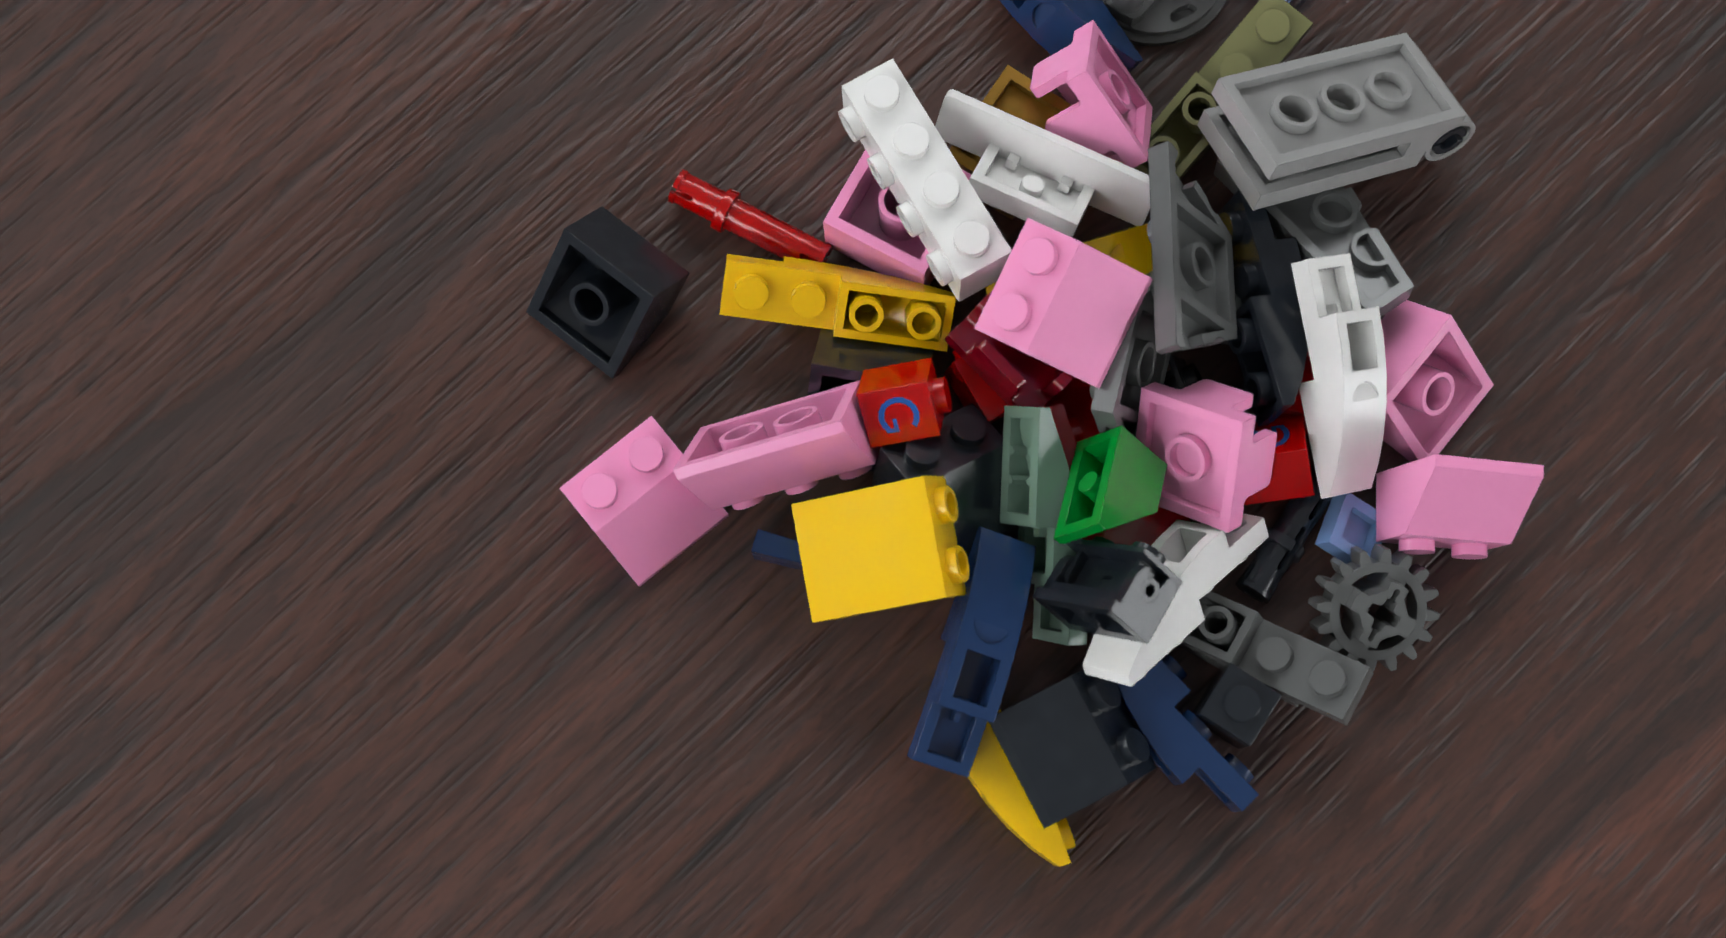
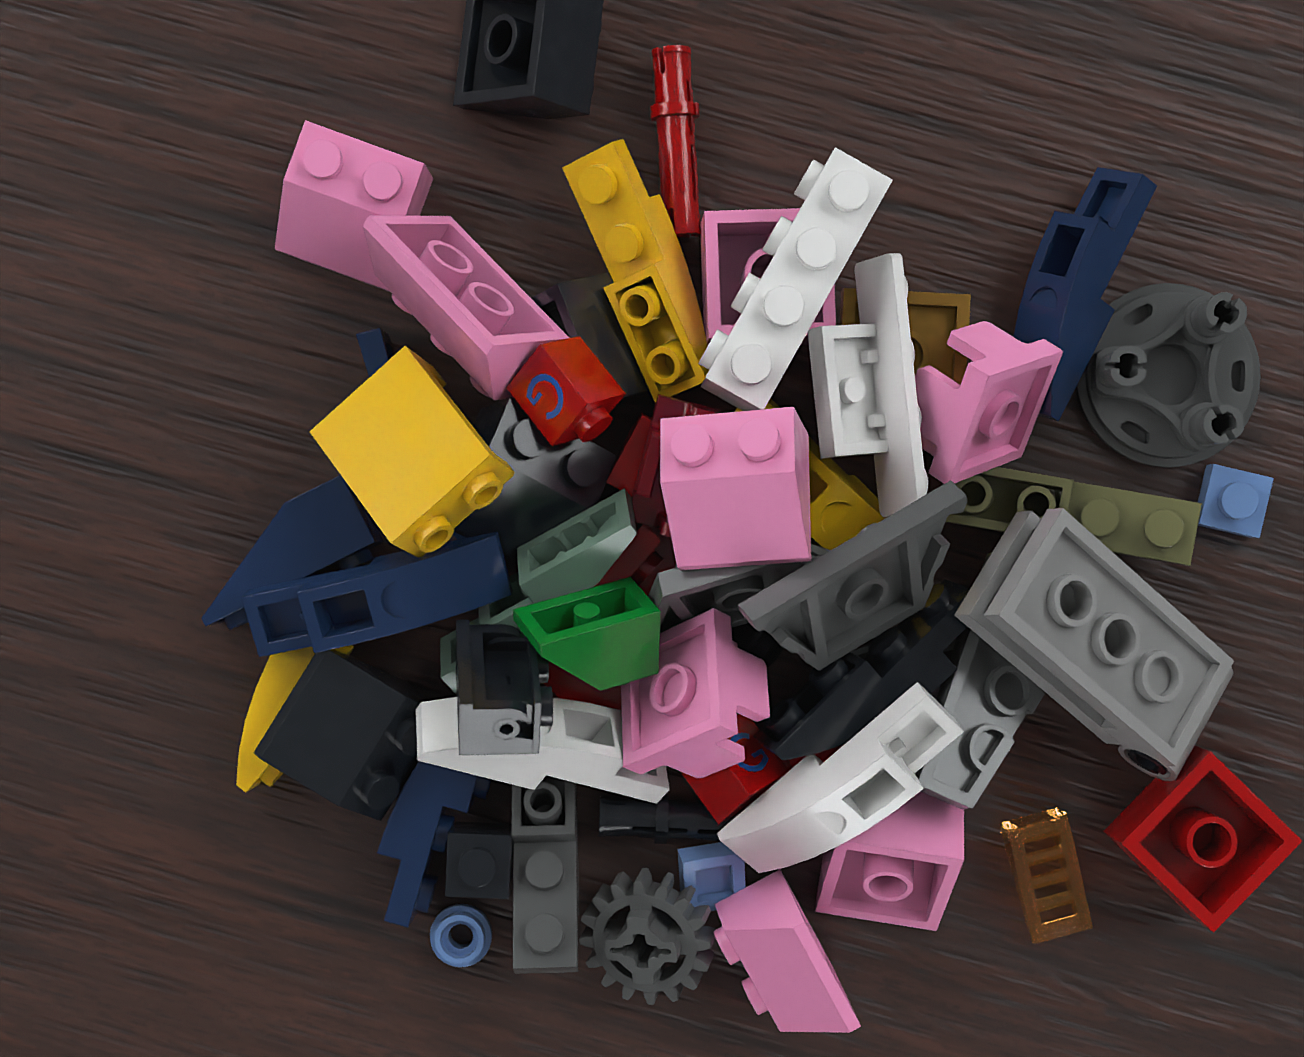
camera: 60 degrees right, 10 degrees up
(889, 693) = (302, 541): none -> dark blue slope
(1305, 765) = (460, 954): none -> medium blue plate
(1454, 281) = (1033, 828): none -> clear orange slope
(1533, 135) = (1203, 838): none -> red brick

